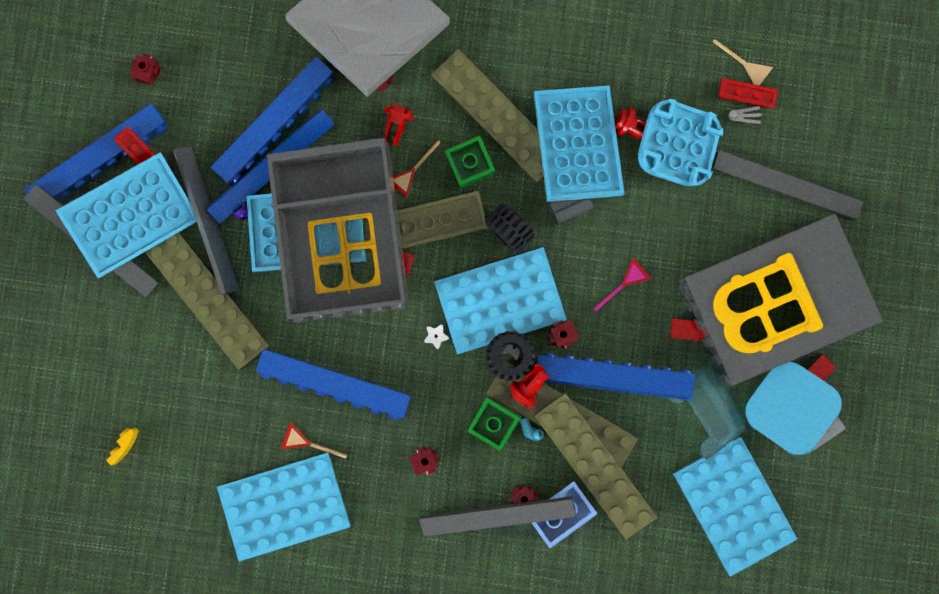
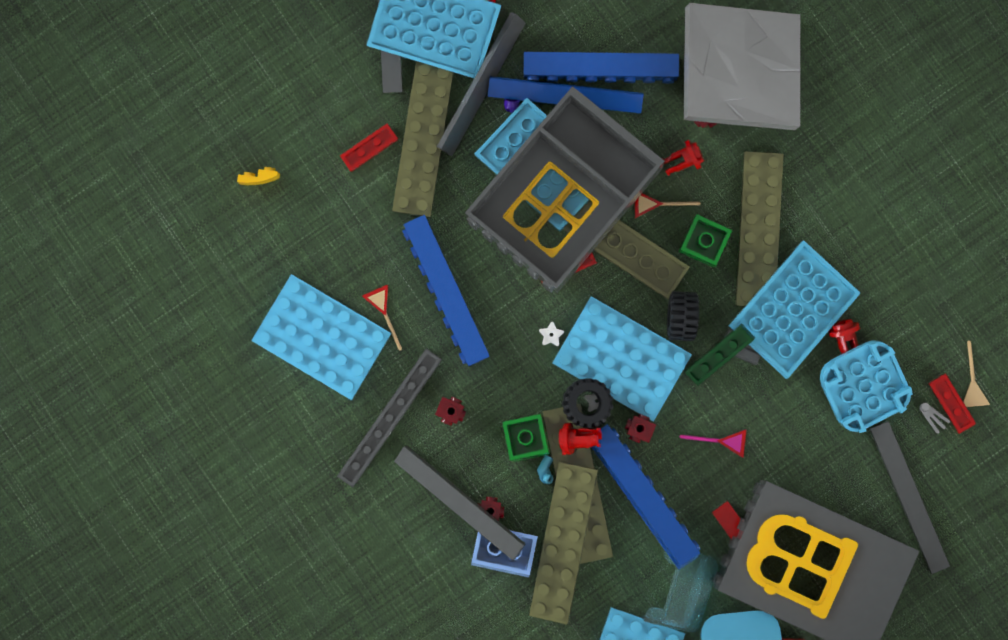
camera: 50 degrees right, 0 degrees up
(177, 344) = (369, 147): none -> red tile
(388, 510) = (389, 418): none -> dark grey tile
(562, 227) = (719, 354): none -> dark green tile

